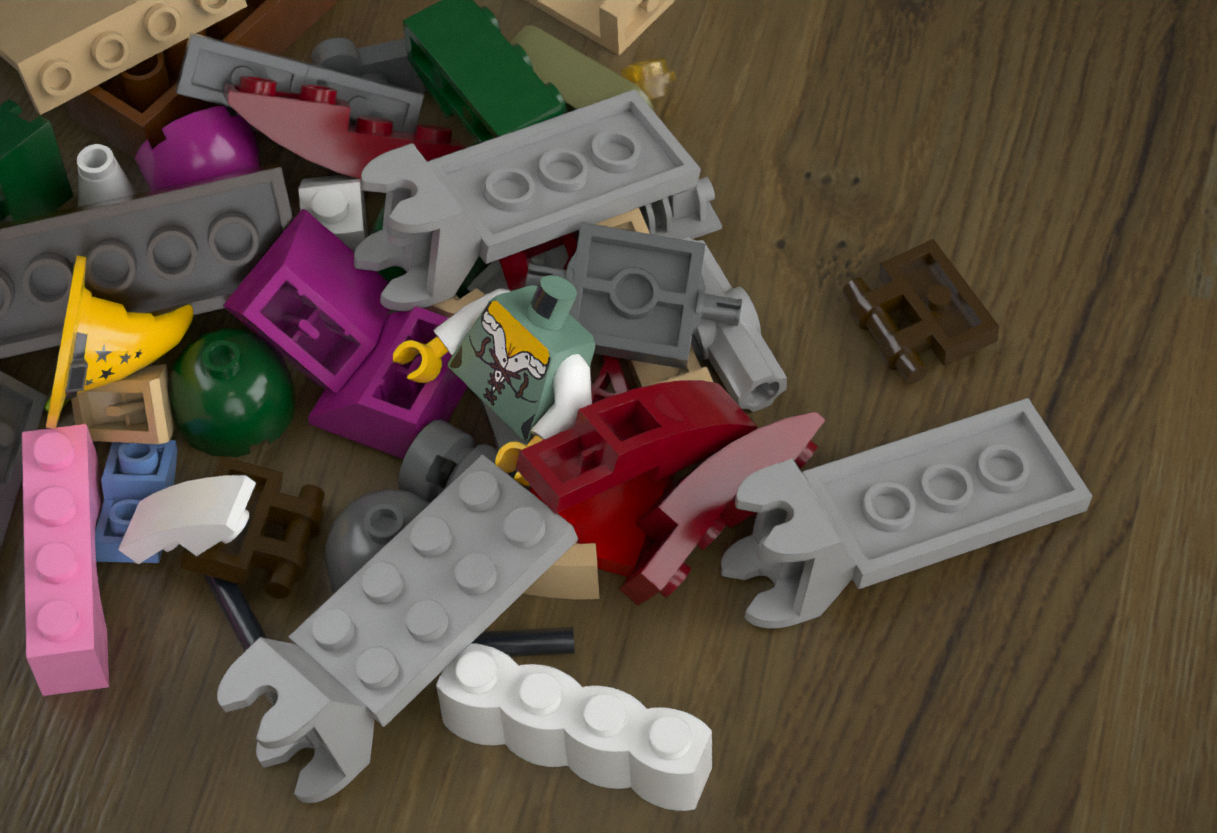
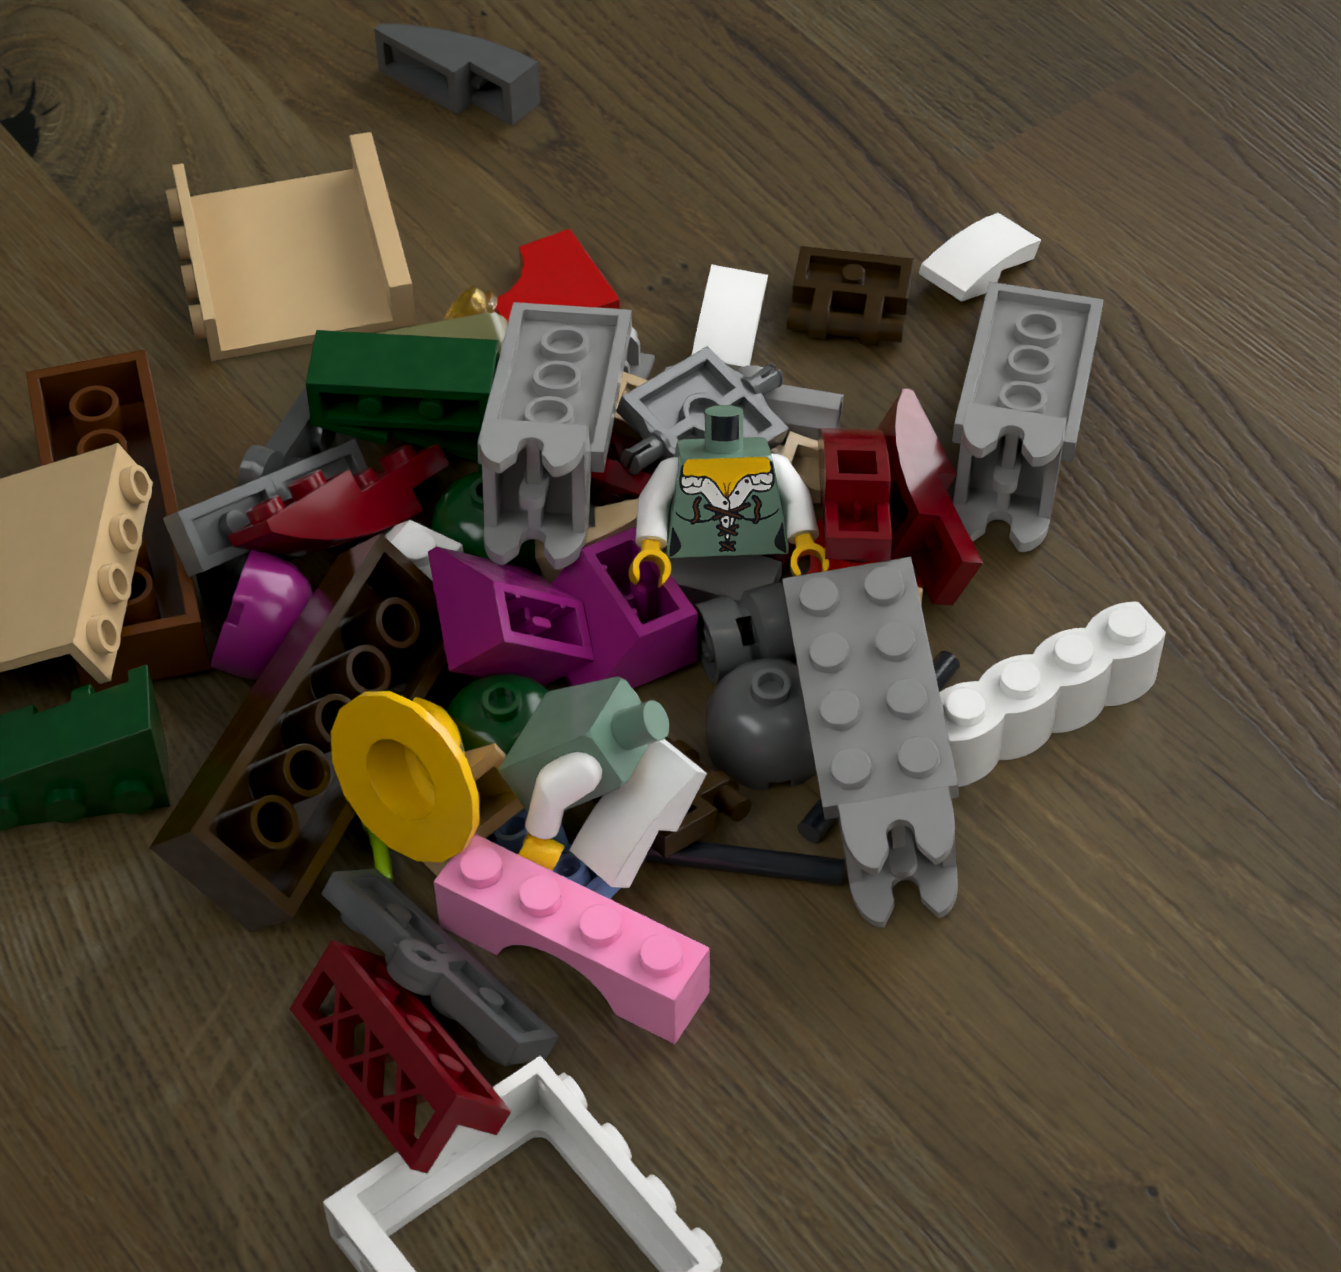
camera: 55 degrees left, 5 degrees down
(100, 176) = (204, 701): white cone -> none
(193, 438) = (575, 750): none -> sand green torso
(733, 117) = (558, 274): none -> red tile
(803, 243) = (731, 314): none -> white slope
(1062, 370) = (978, 256): none -> white slope

